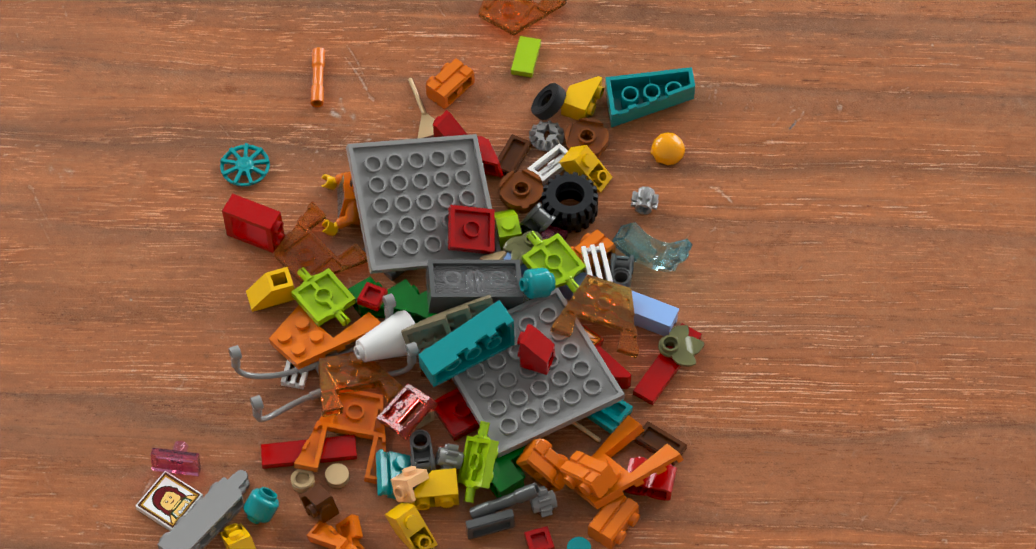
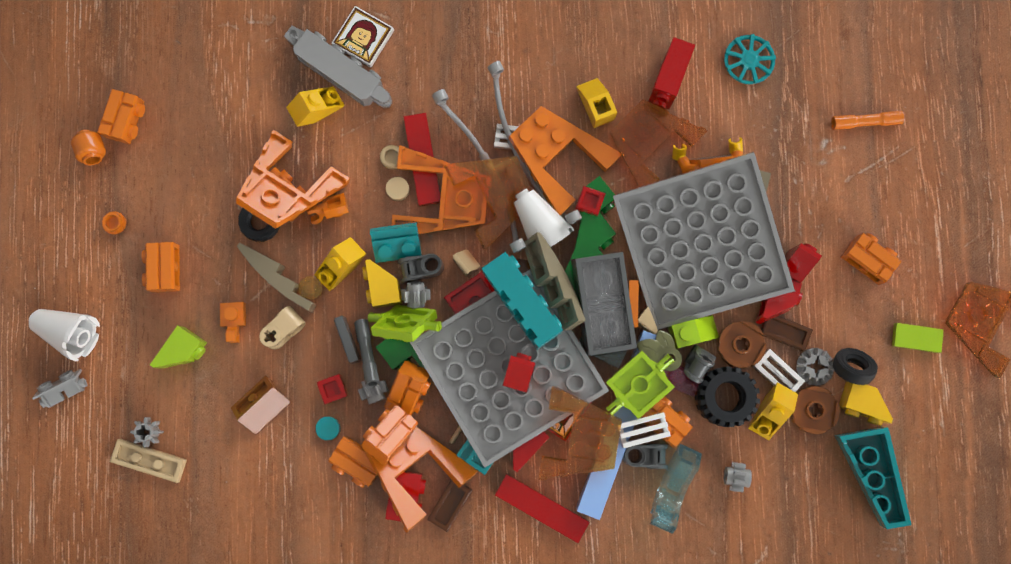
camera: 85 degrees right, 25 degrees up
(176, 460) = (404, 36): clear pink tile -> none
(261, 505) = (355, 120): teal head -> none
(319, 503) = (359, 175): reddish brown brick -> none
(323, 297) = (588, 152): lime plate -> none
(402, 407) = (464, 243): clear red plate -> none
(404, 483) = (380, 256): light nougat bracket -> none
(426, 122) = (821, 240): tan piece -> none
(471, 229) = (676, 295): red plate -> none
(537, 283) = (604, 369): teal head -> none
(667, 149) = (808, 499): light orange hair -> none
(683, 346) = (558, 525): olive plate -> none

